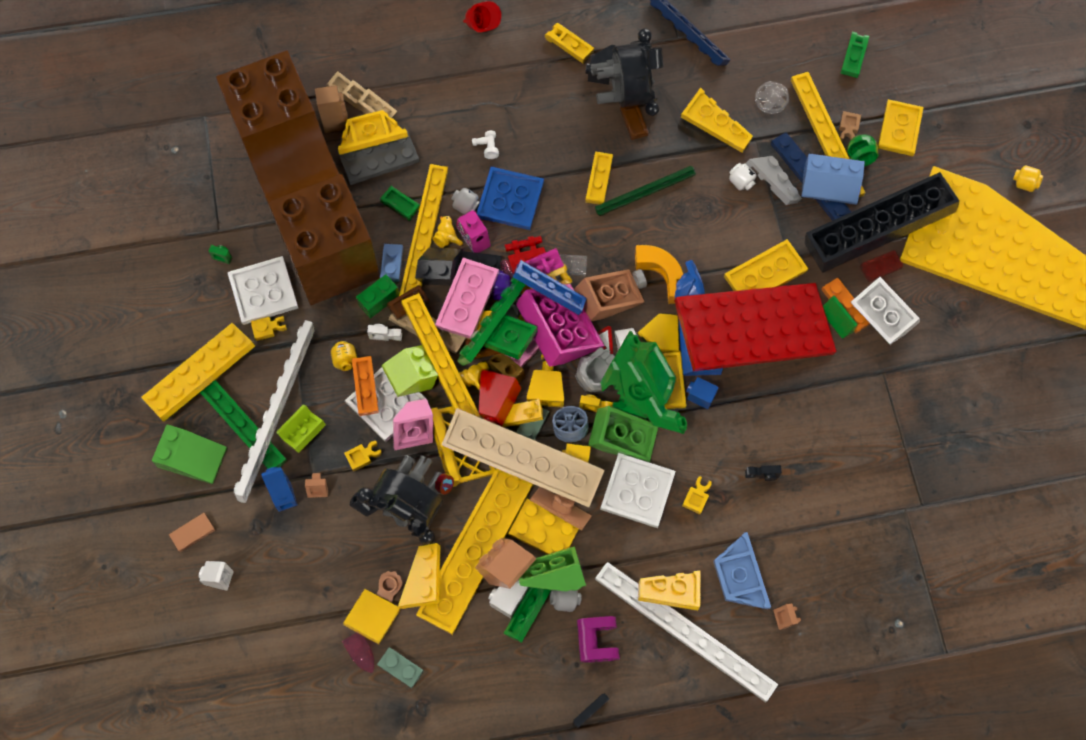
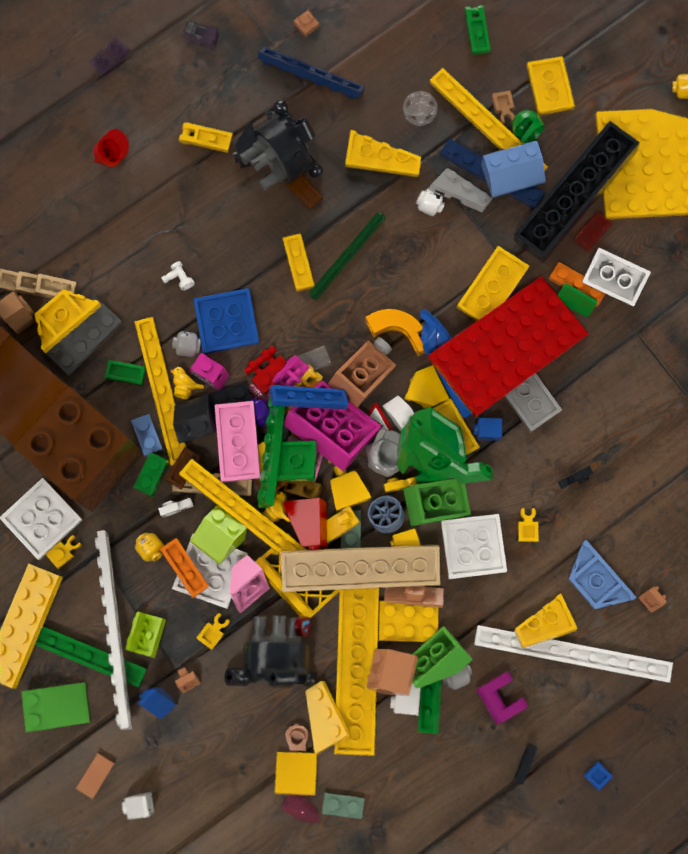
camera: 25 degrees left, 10 degrees up
(754, 388) = (533, 403): none -> light grey plate

